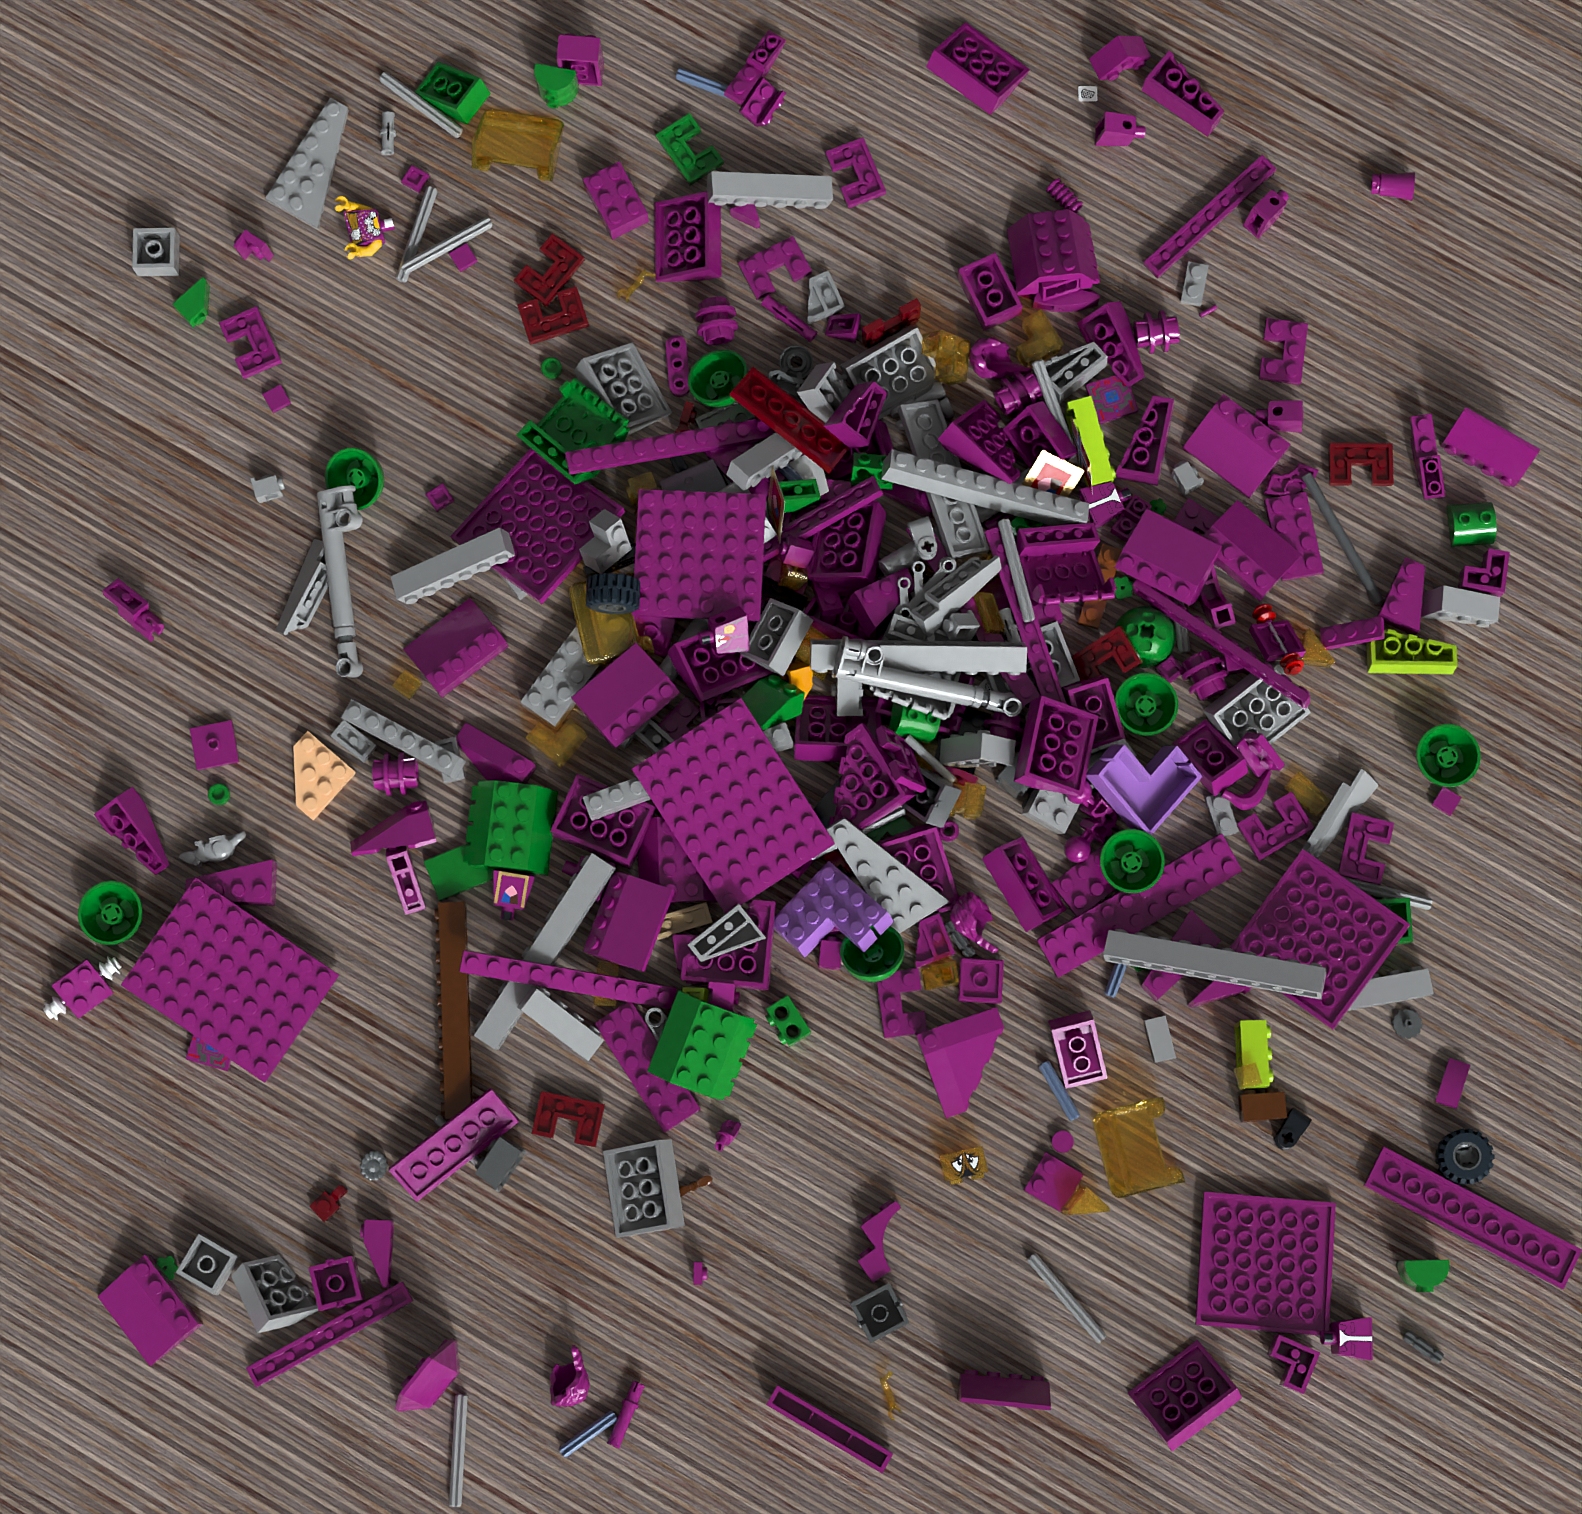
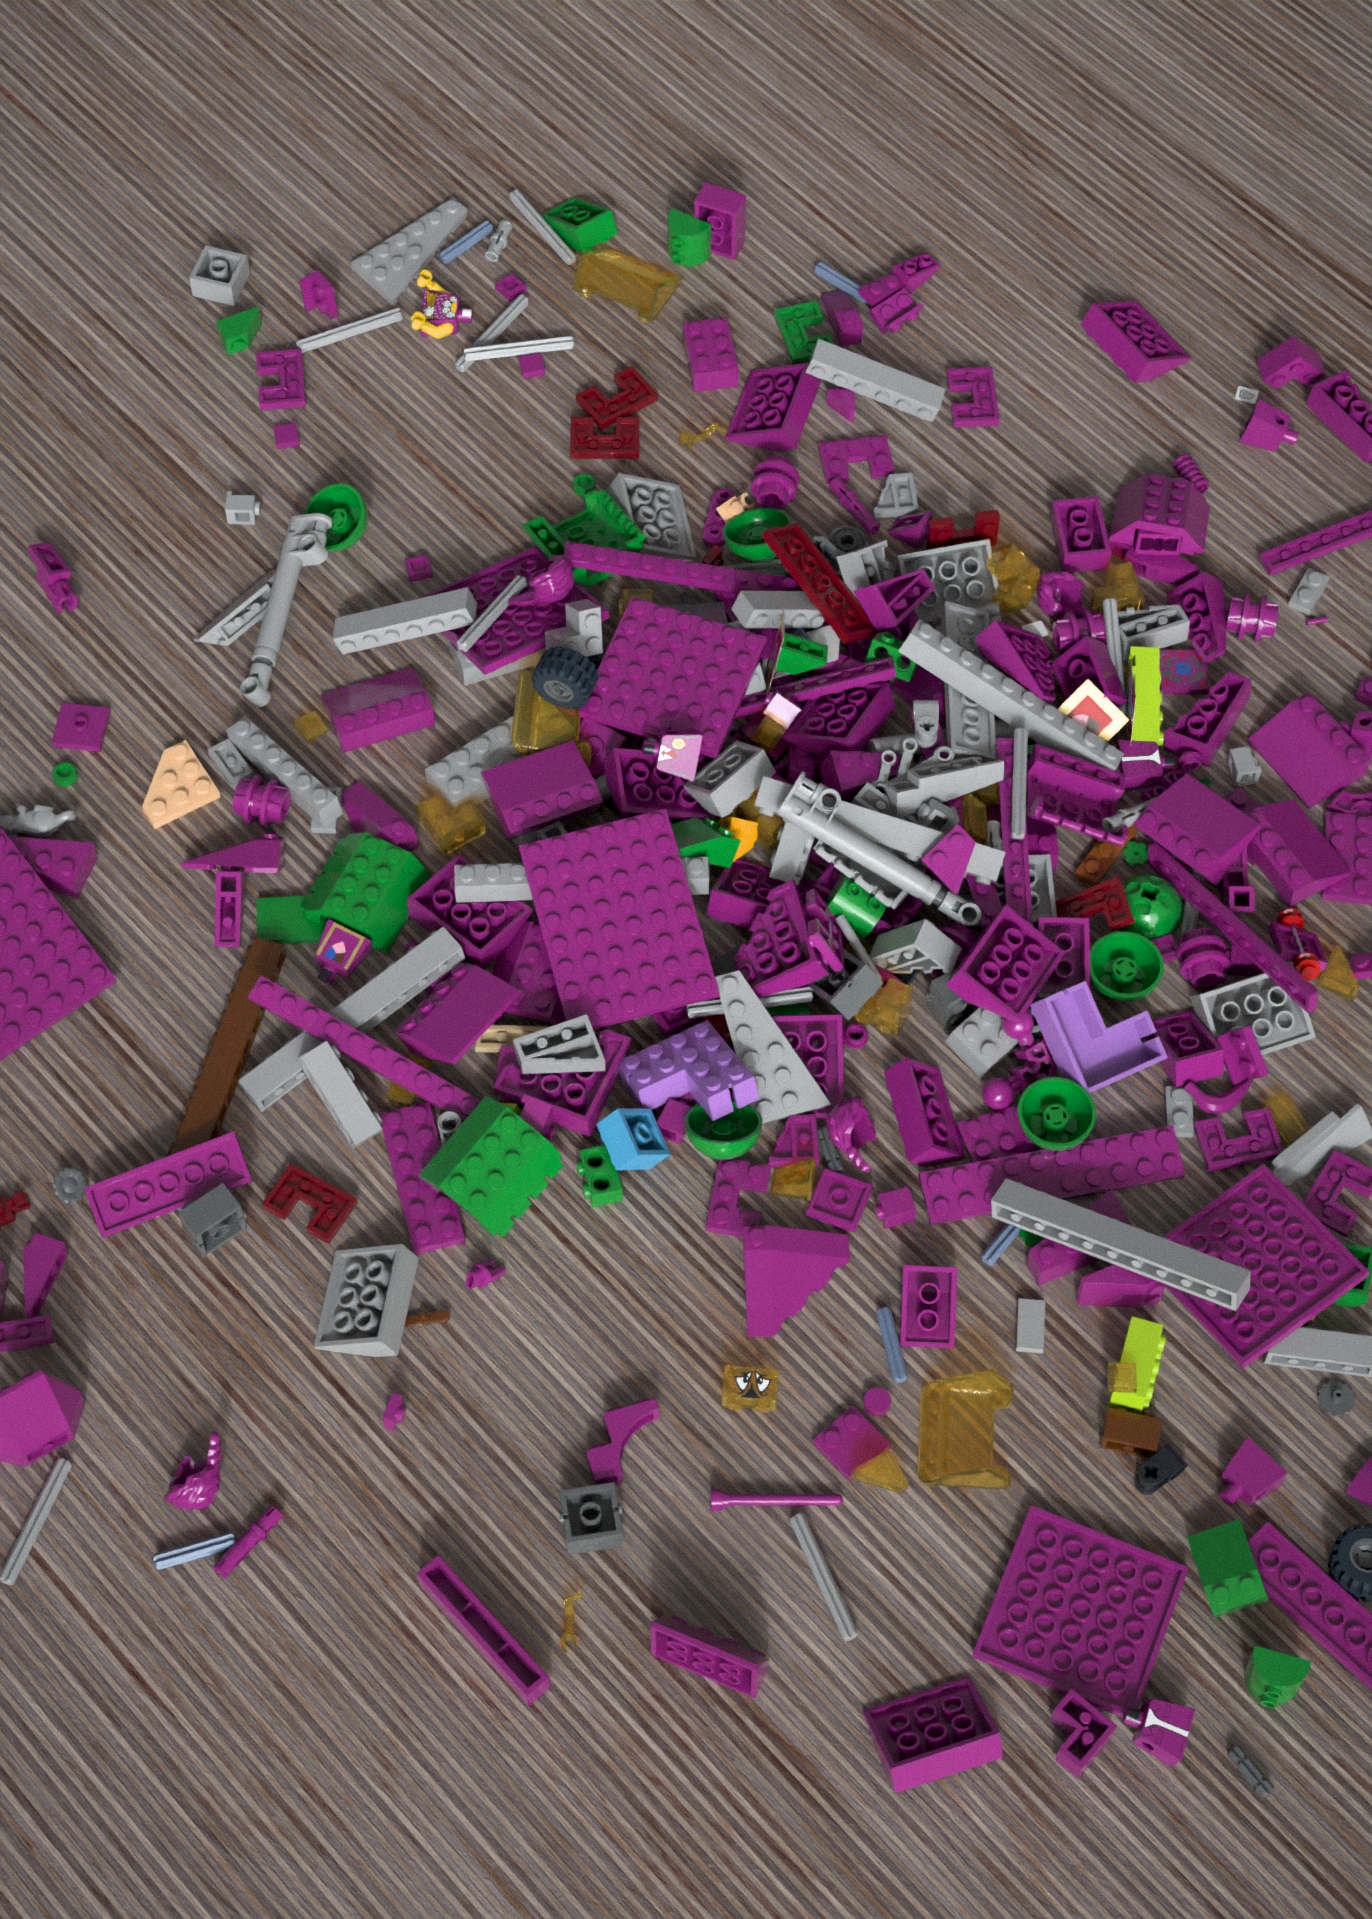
camera: 15 degrees right, 20 degrees down
(290, 270) = (349, 330): none -> axle
(358, 142) = (465, 242): none -> sand blue axle
(525, 539) = (492, 612): none -> light grey axle
(568, 498) = (550, 585): none -> magenta hair
(689, 355) = (734, 507): none -> light nougat plate
(716, 121) = (843, 318): none -> magenta slope
(806, 987) = (633, 1139): none -> dark azure brick
(971, 1262) = (721, 1499): none -> magenta piece
(977, 394) = (1036, 627): none -> white sticker
(985, 666) = (951, 857): none -> magenta wing
(1026, 974) = (895, 1207): none -> magenta brick
(1107, 564) = (1115, 821): none -> light grey pin
(1142, 488) = (1189, 761): none -> magenta plate
(1360, 1112) = (1250, 1475): none -> magenta torso
(1365, 1197) = (1227, 1568): none -> green slope

